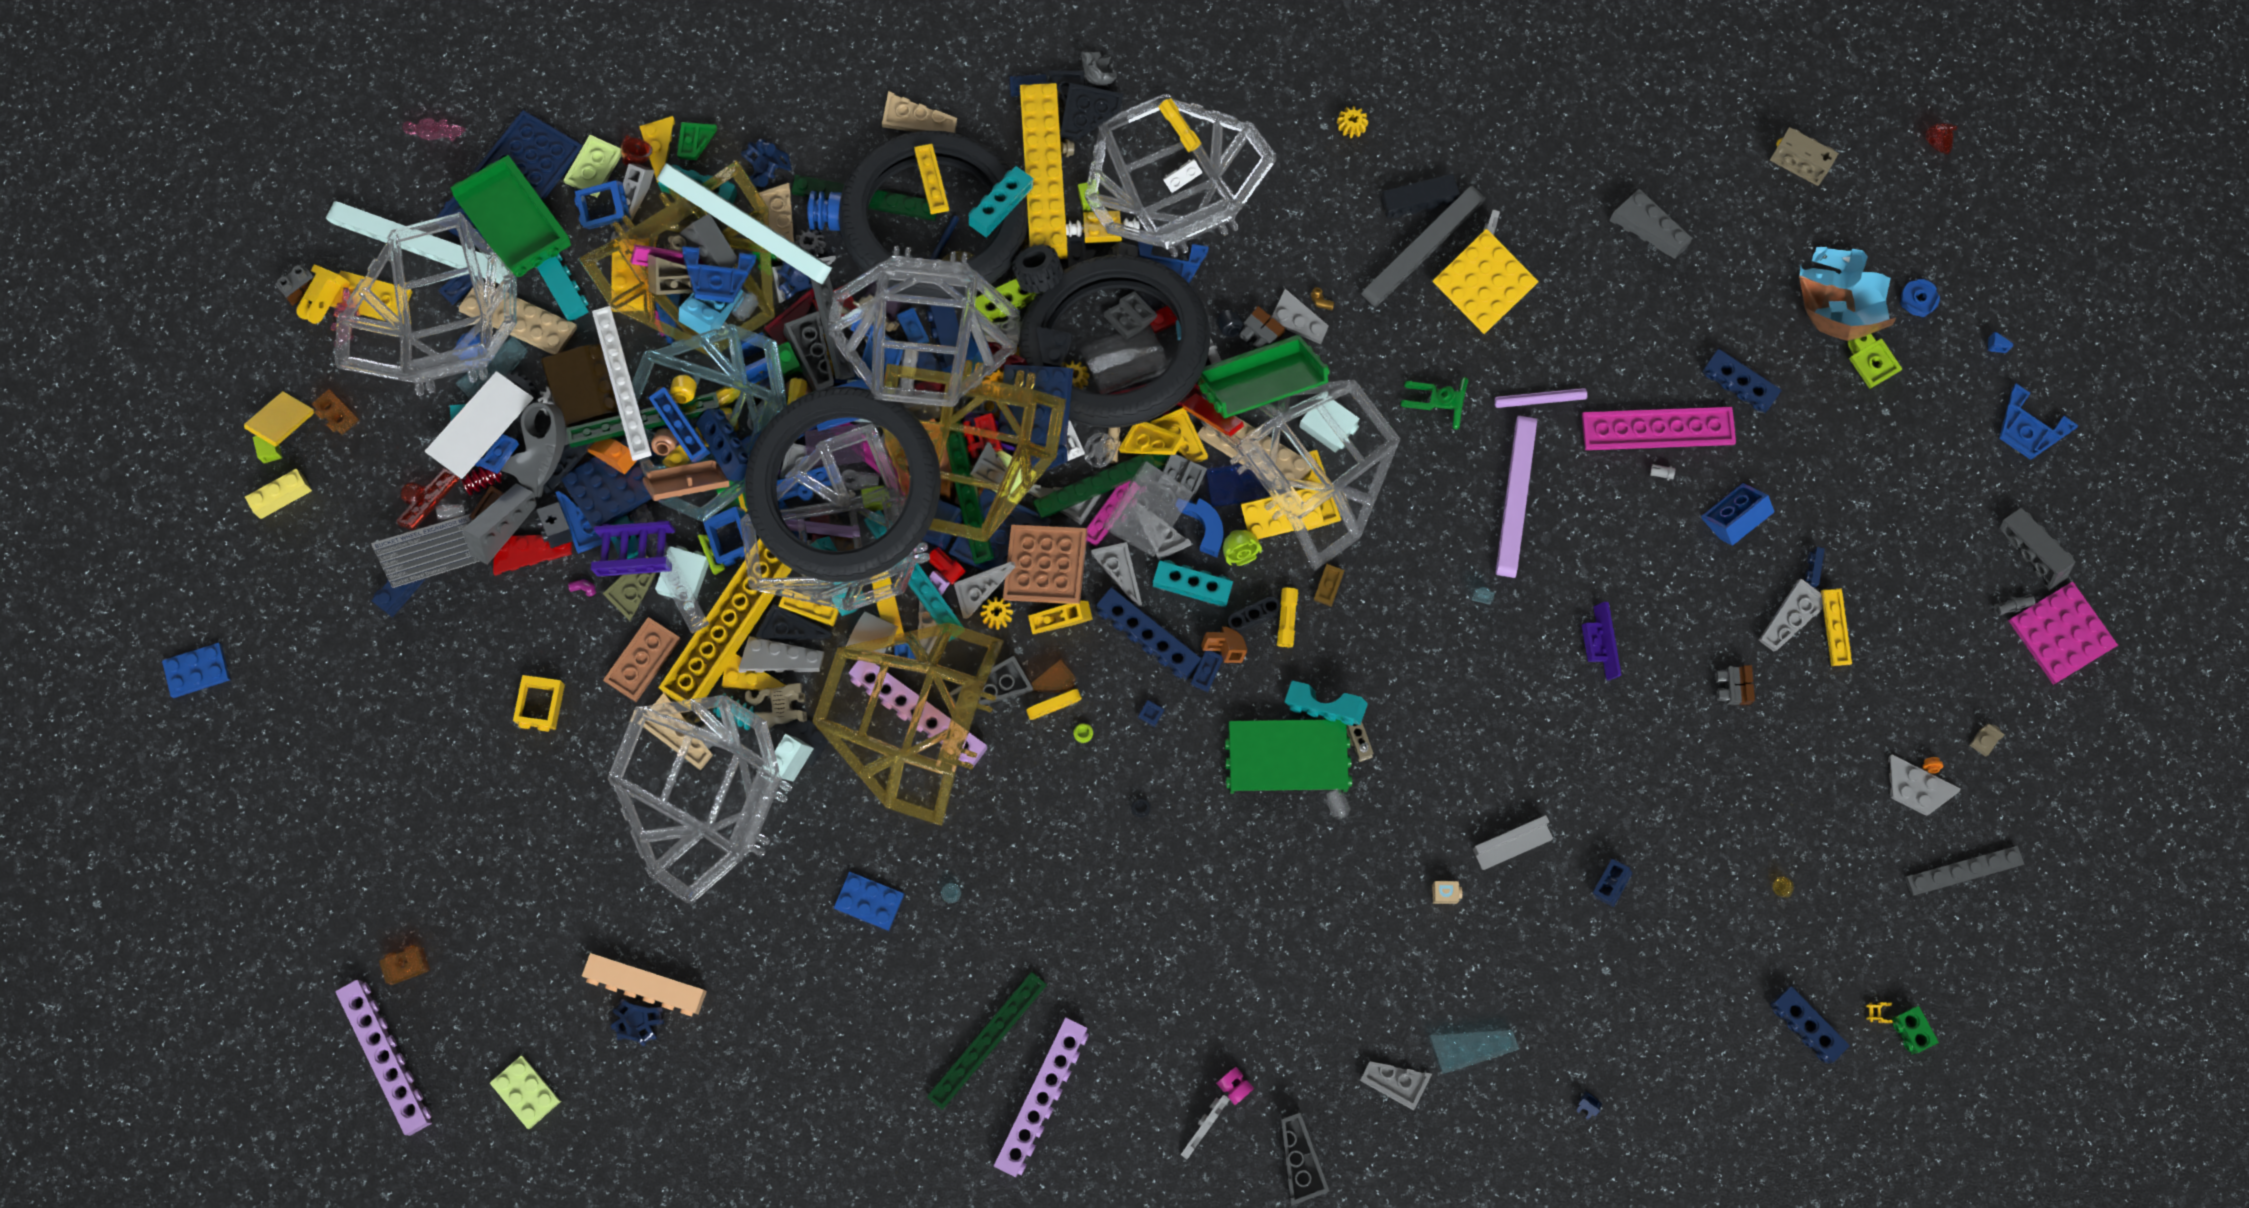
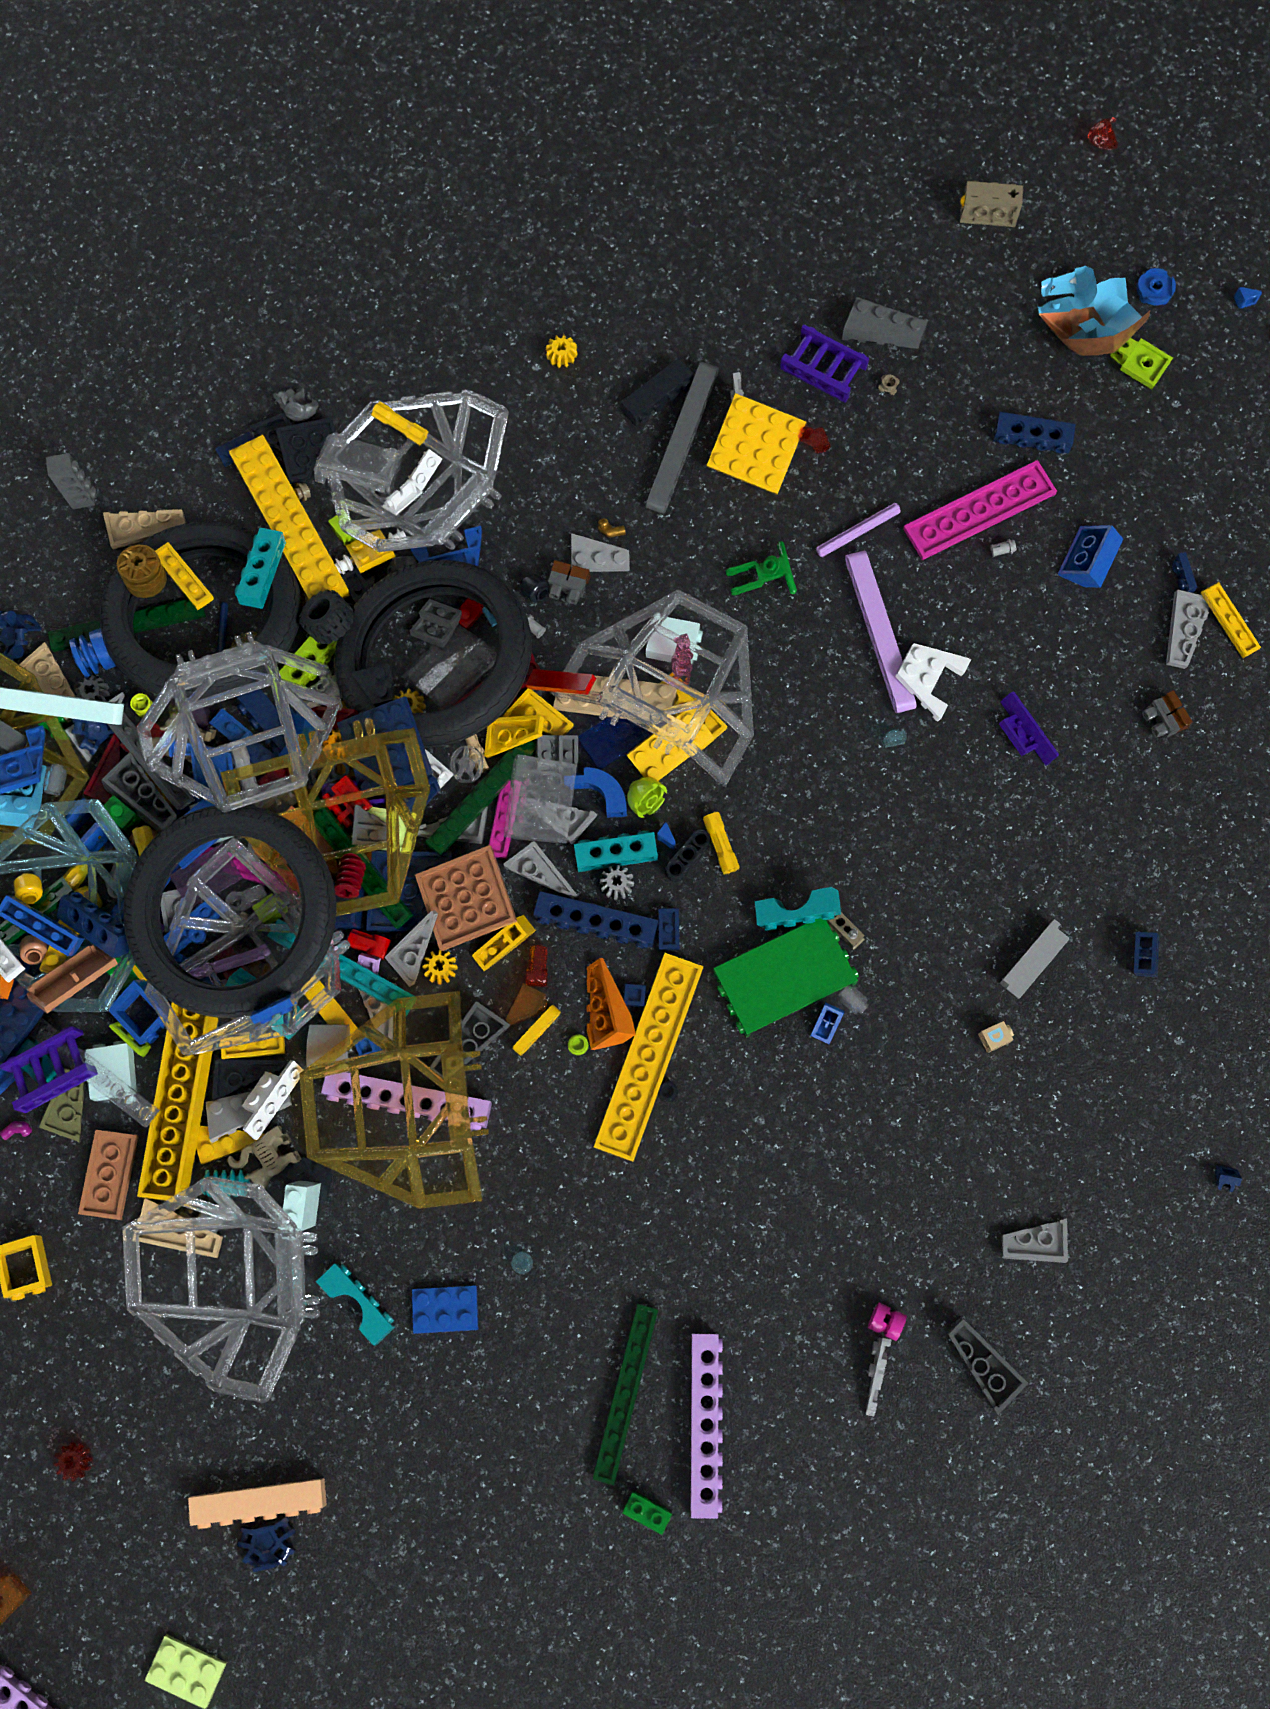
camera: 20 degrees left, 0 degrees up
(516, 877) = (80, 1459): none -> clear red gear
(803, 656) = (268, 1097): none -> white bracket
(805, 884) = (375, 1323): none -> teal arch
(846, 271) = (139, 702): none -> neon yellow wheel
(848, 583) = (281, 1006): none -> blue plate
(873, 53) = (71, 481): none -> dark grey brick
(898, 159) = (141, 571): none -> pearl gold wheel
(955, 500) = (349, 876): none -> dark red piece
(959, 1145) = (647, 1512): none -> green brick
(1078, 653) = (536, 972): none -> clear red piece
(1122, 719) = (609, 1015): none -> orange wedge
(1126, 146) = (358, 464): none -> clear windscreen
(1138, 771) = (648, 1057): none -> yellow plate
(1150, 193) = (400, 499): none -> white hinge
(1173, 607) = (624, 878): none -> light grey gear
(1228, 642) = (677, 893): dark orange brick -> none
(1241, 589) = (666, 837): none -> blue slope
(1262, 376) = (590, 624): green panel -> none
(1305, 813) = (827, 1023): none -> blue slope
(1326, 443) = (681, 658): none -> clear pink animal
(1329, 585) = (745, 794): pearl gold plate -> none
(1466, 1049) = (1086, 1180): clear light blue wing -> none
(1534, 548) = (921, 671): none -> white wing
(1541, 299) = (815, 437): none -> clear red piece
(1574, 251) = (816, 378): none -> dark purple fence
(1631, 274) = (889, 379): none -> dark tan plate

